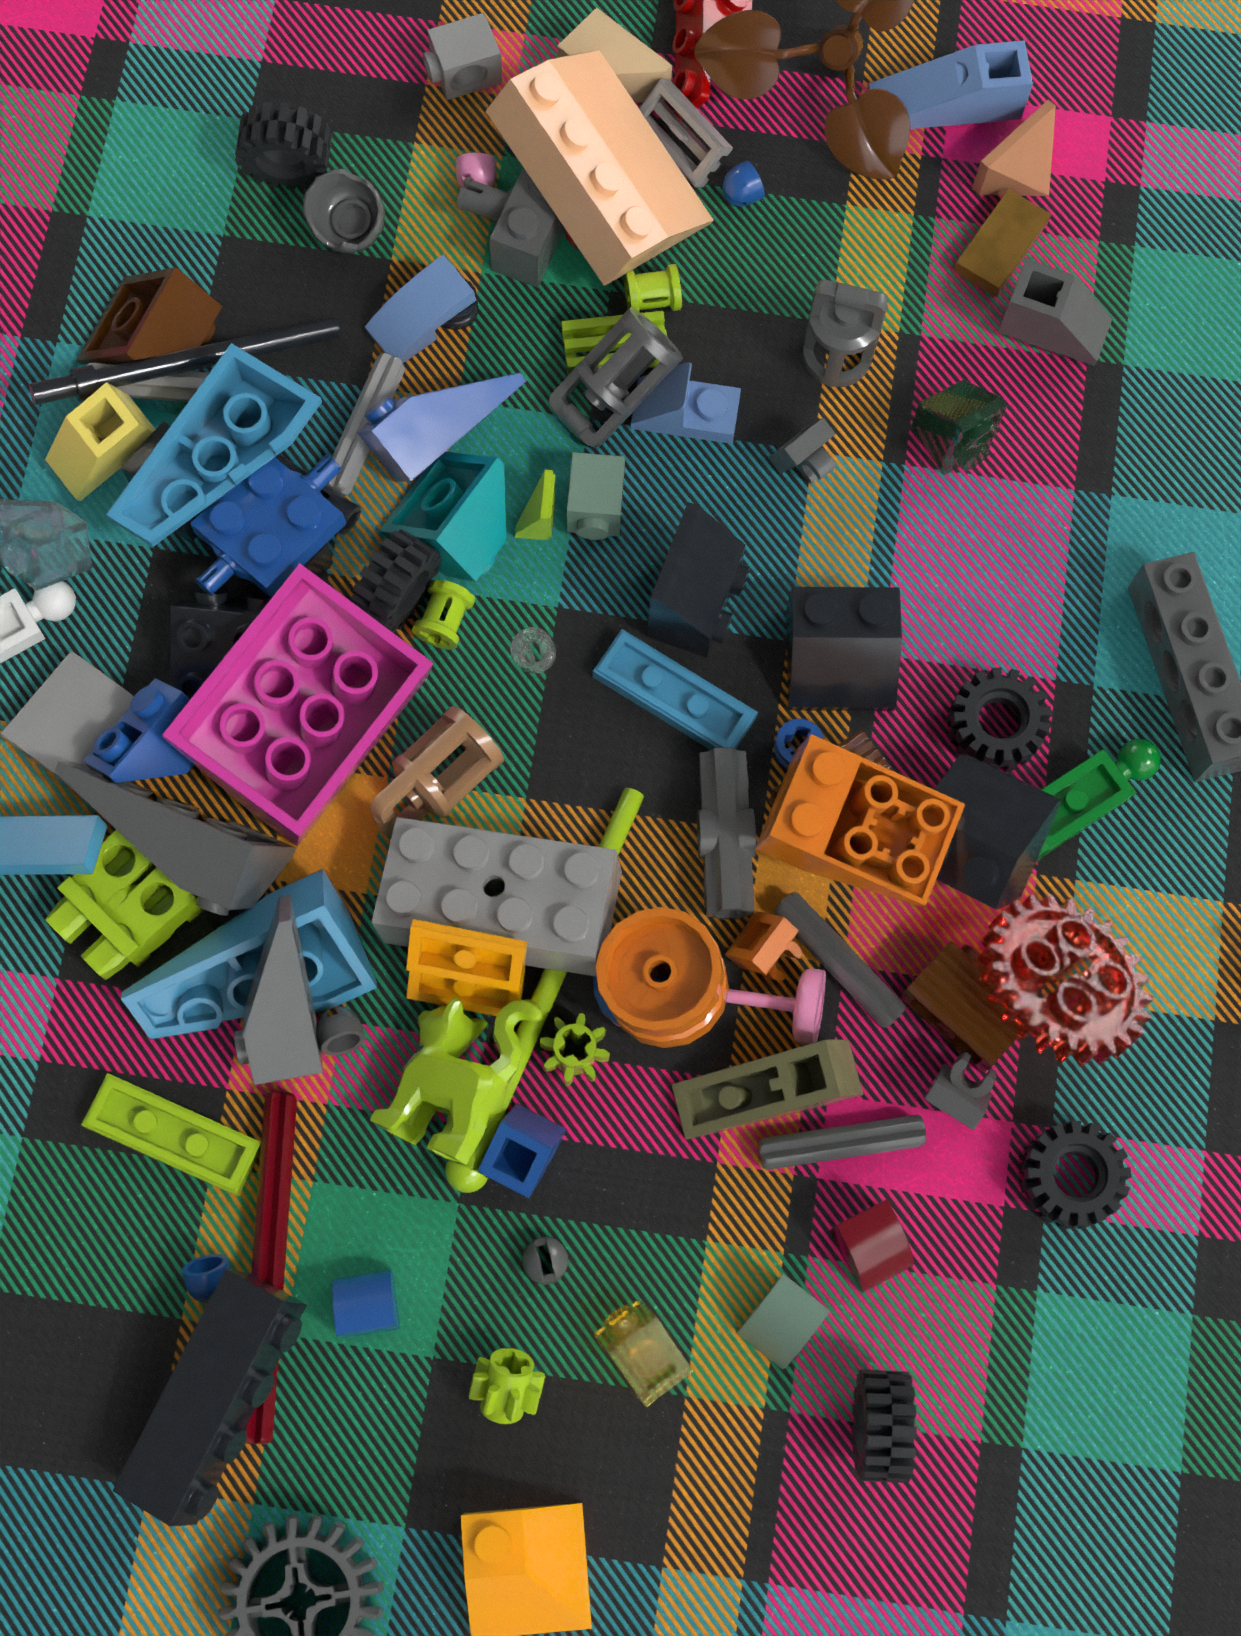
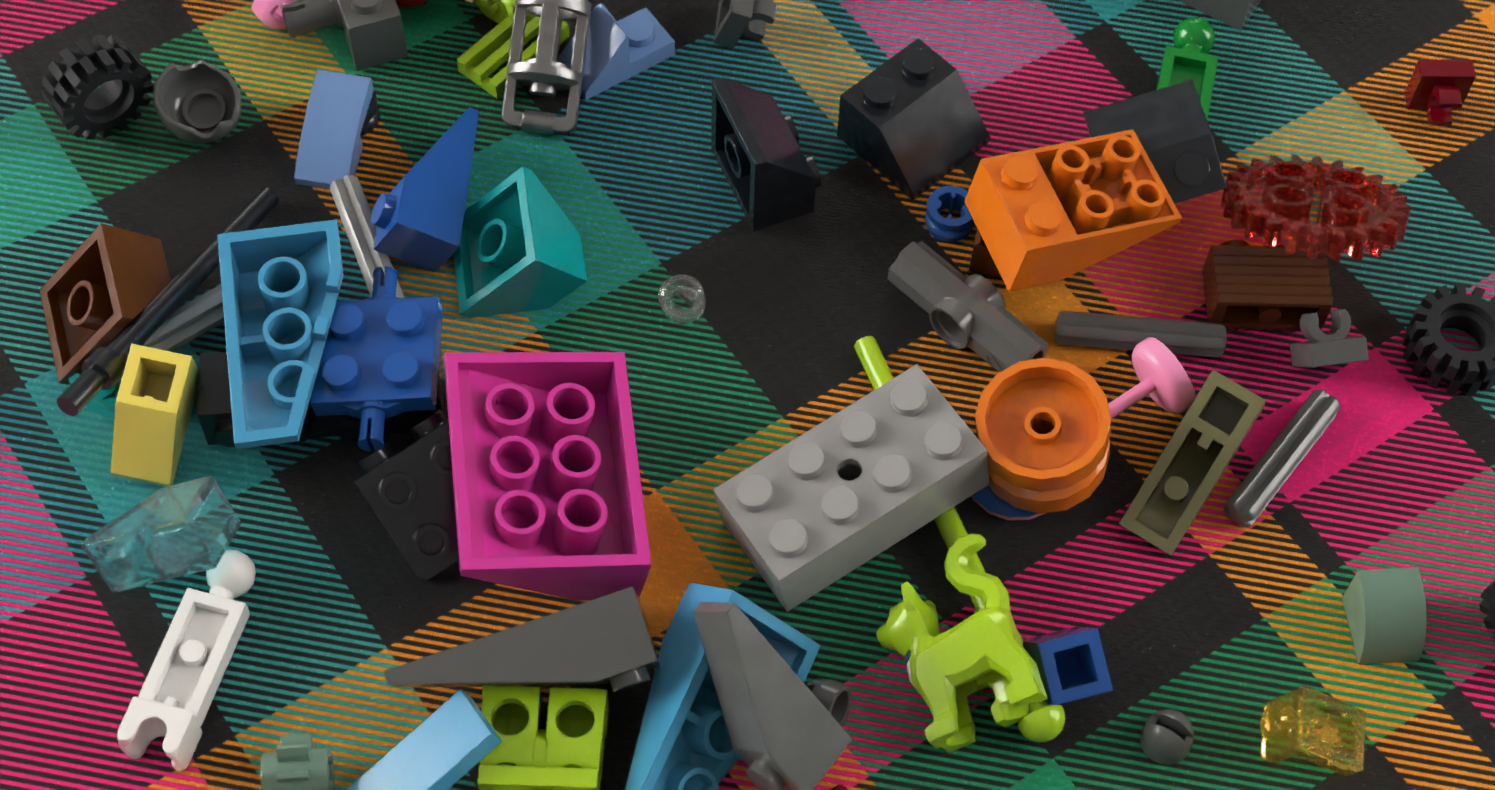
camera: 40 degrees left, 15 degrees down
(67, 714) = (344, 645): light grey slope -> none
(135, 743) = (433, 600): blue slope -> none
(396, 579) = (523, 313): black tyre -> none
(415, 766) = (702, 457): medium nougat piece -> none
(456, 601) = (581, 326): lime bush -> none
(466, 965) = (881, 550): light orange slope -> none
(538, 514) = (583, 197): lime slope -> none
(570, 1065) = (1030, 540): lime gear -> none
(595, 495) = (614, 155): sand green brick -> none
(673, 693) = (817, 251): dark azure tile -> none
(763, 943) = (1085, 350): orange tile -> none
(874, 1245) = (1384, 505): dark red brick -> none
(1009, 691) = (1074, 62): black tyre -> none

